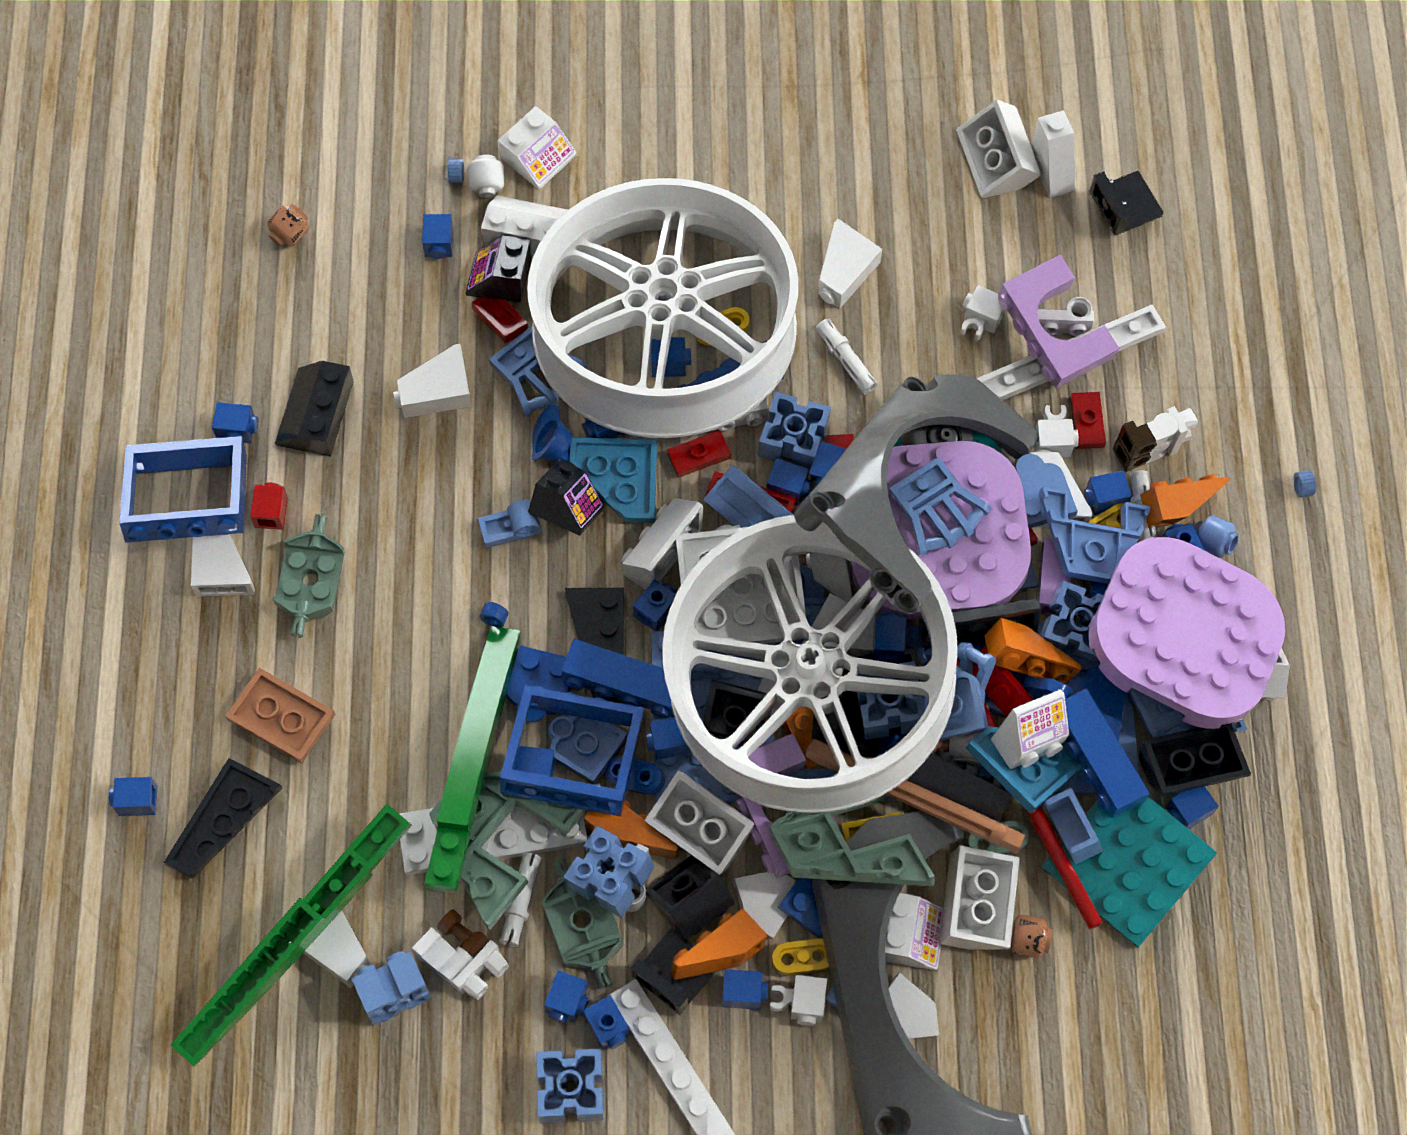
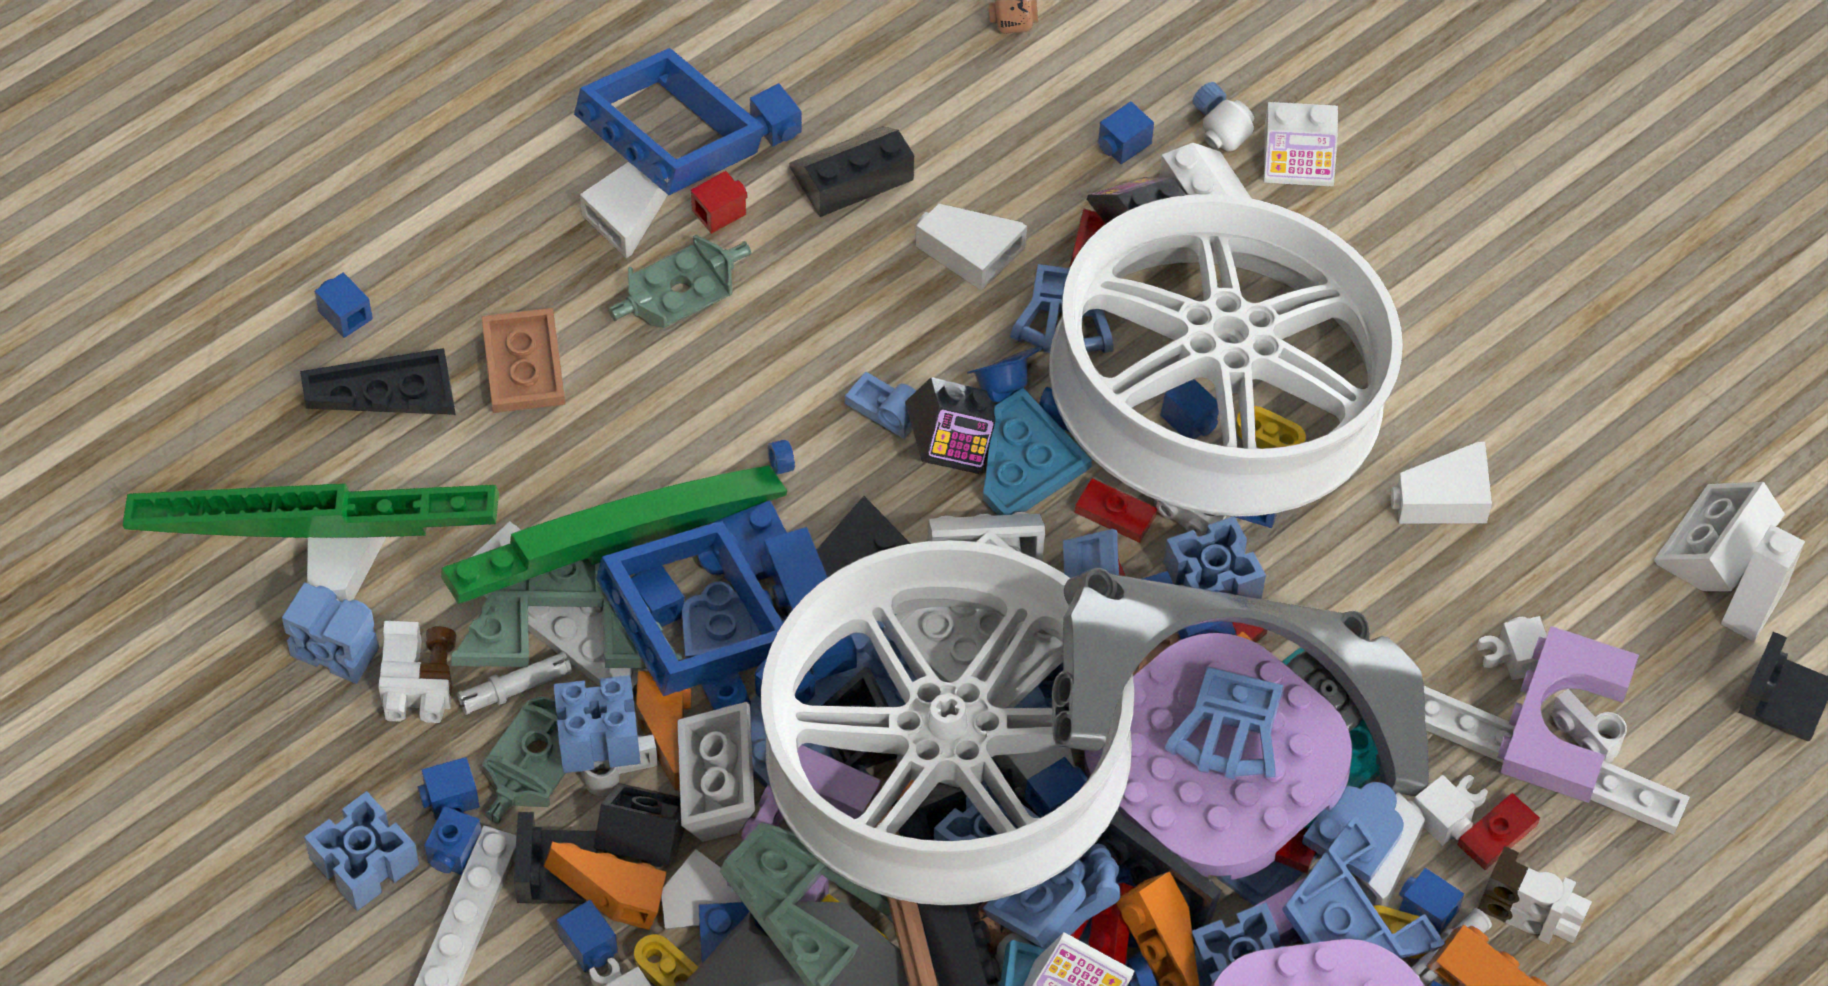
camera: 50 degrees right, 10 degrees down
(840, 347) = (1348, 557): white pin -> none

